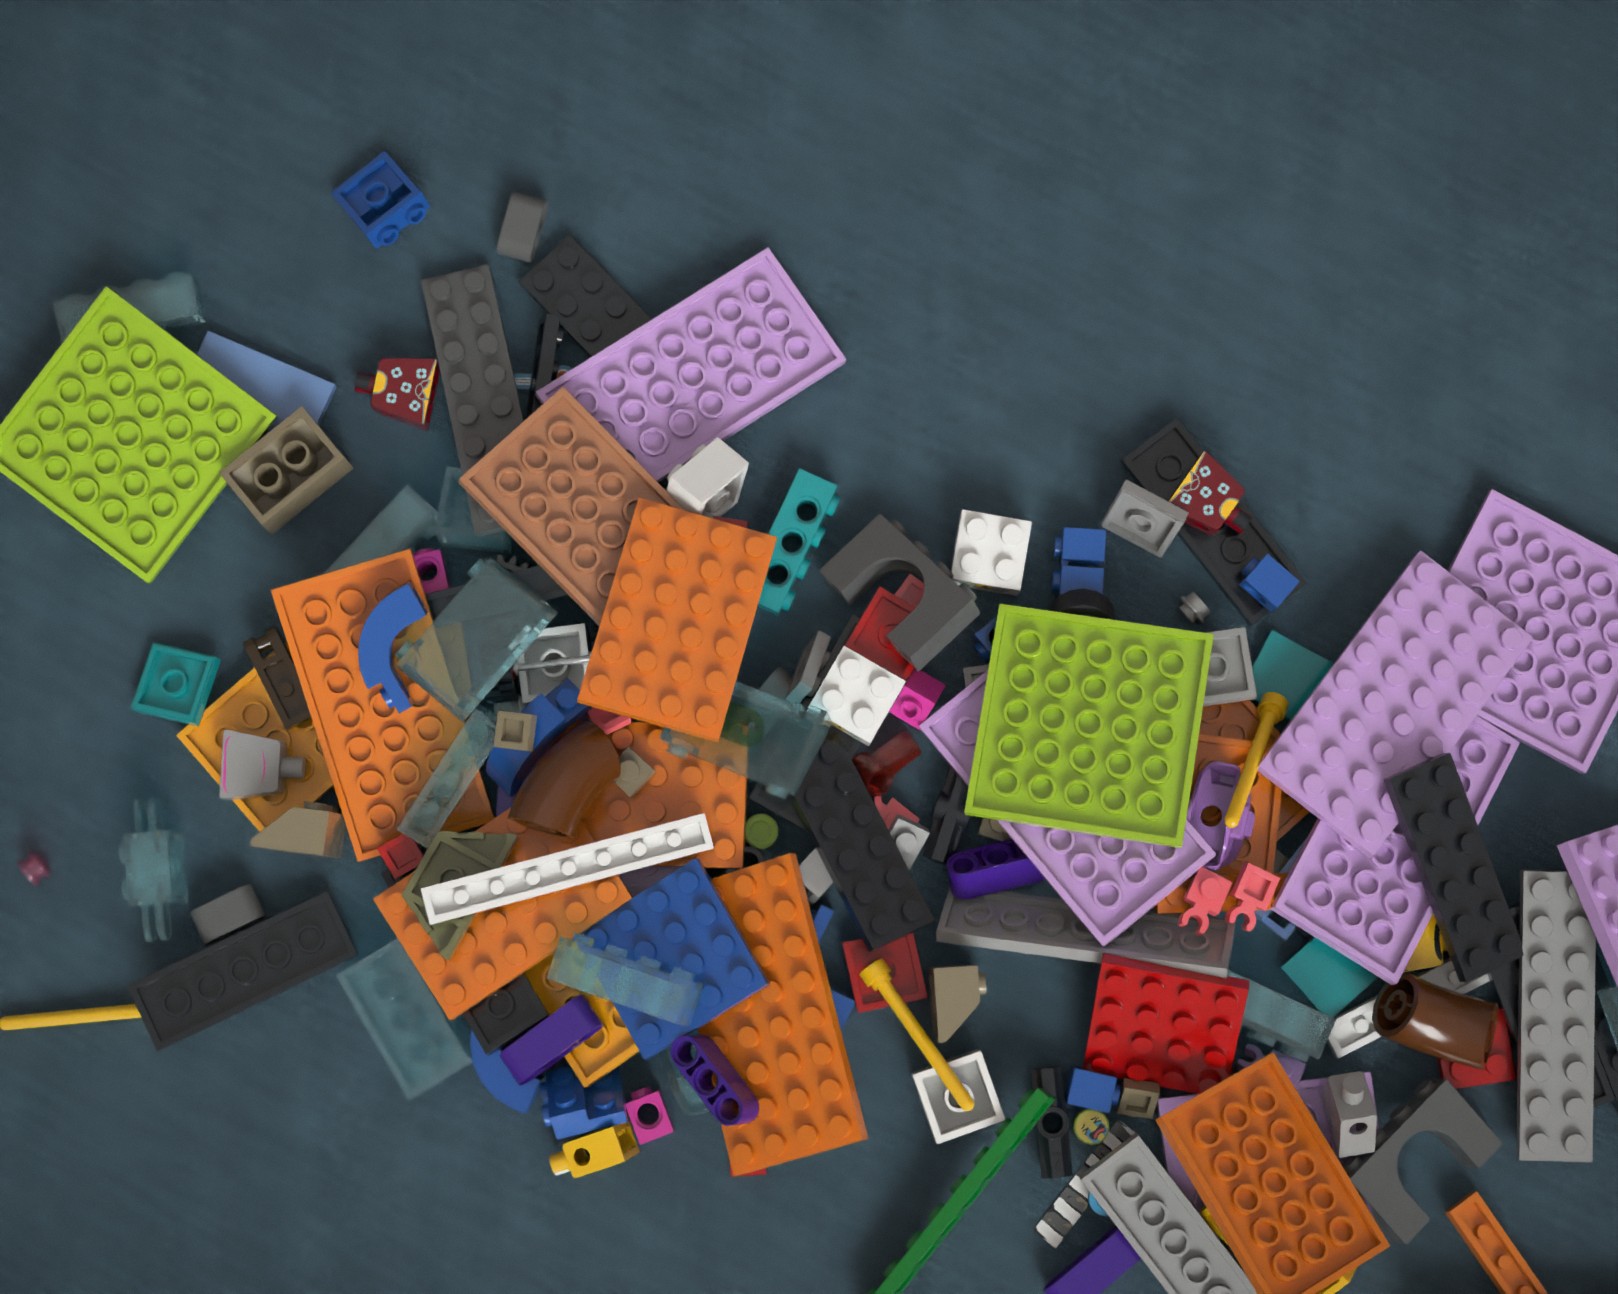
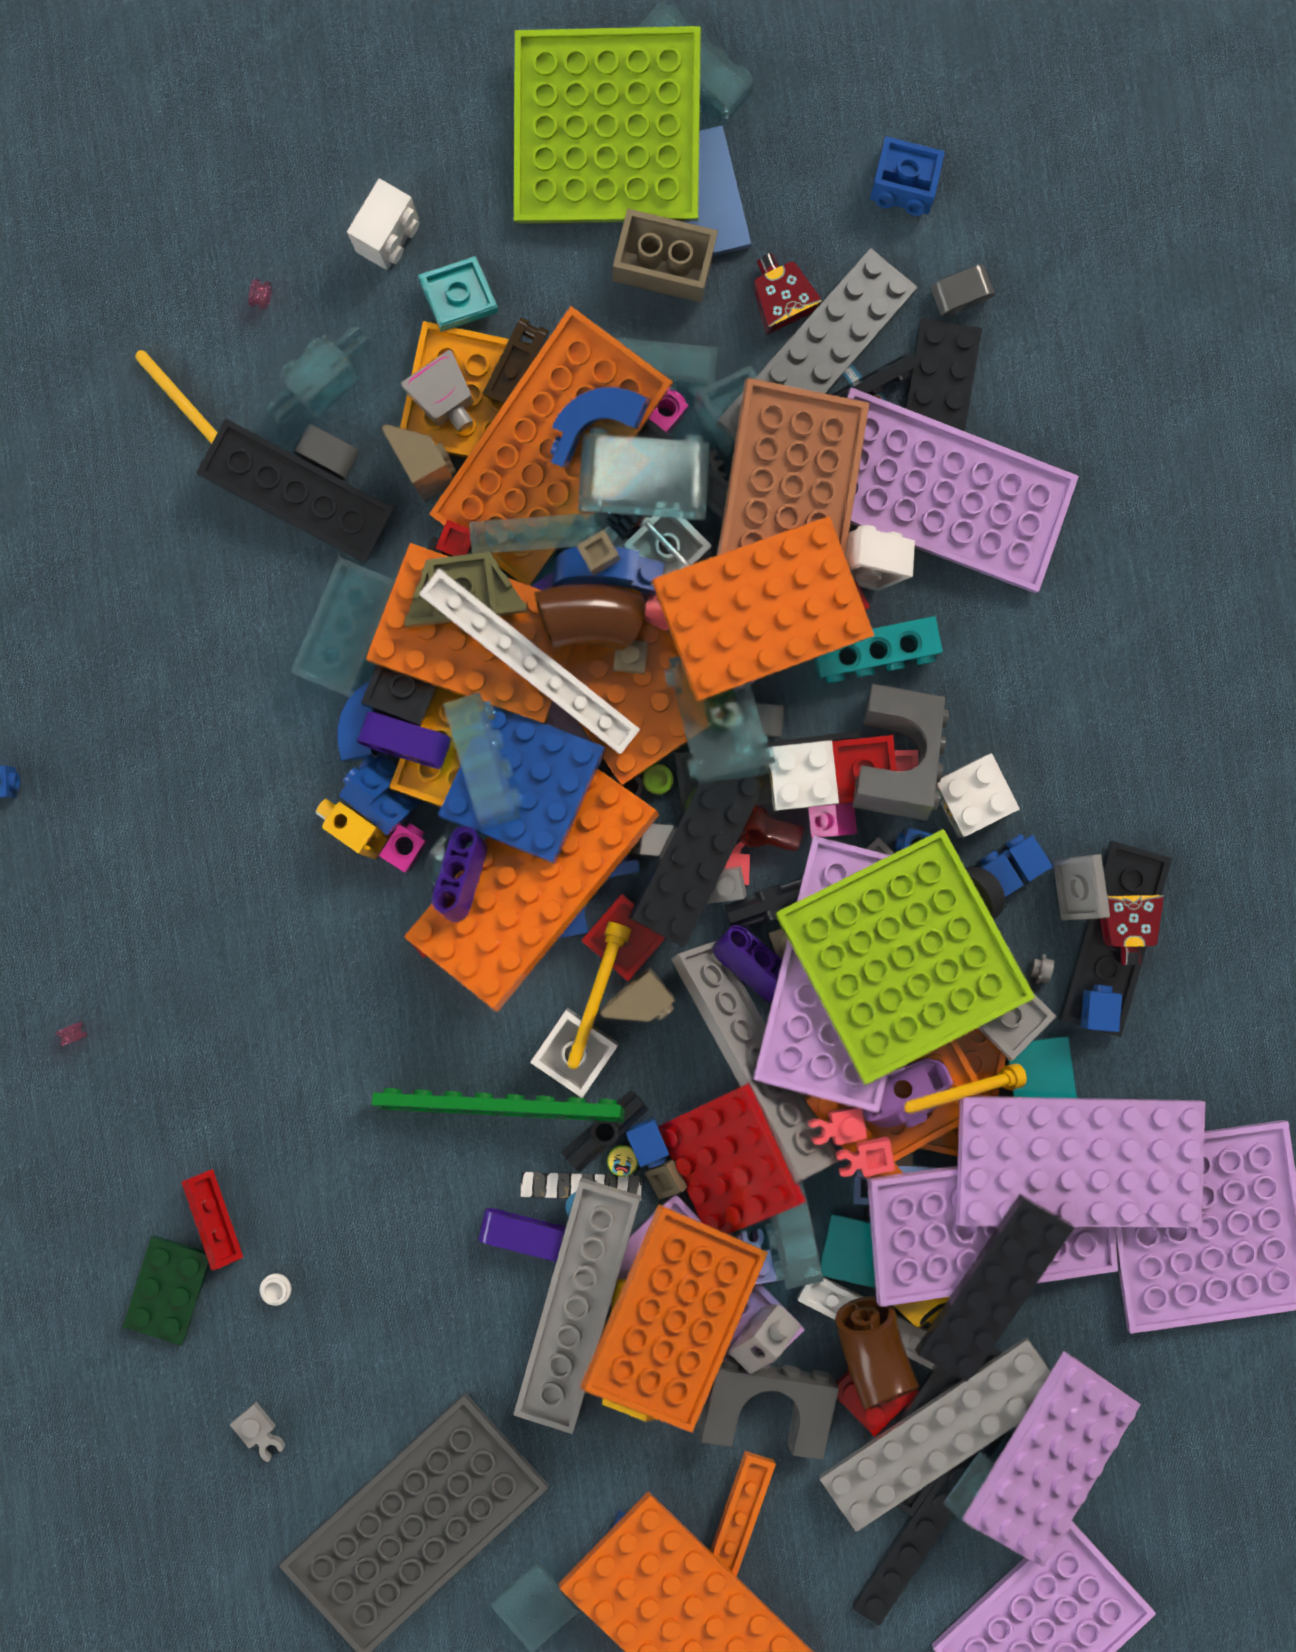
camera: 55 degrees right, 5 degrees up
(62, 705) = (384, 225): none -> white brick
(810, 663) = (804, 726): light grey plate -> none

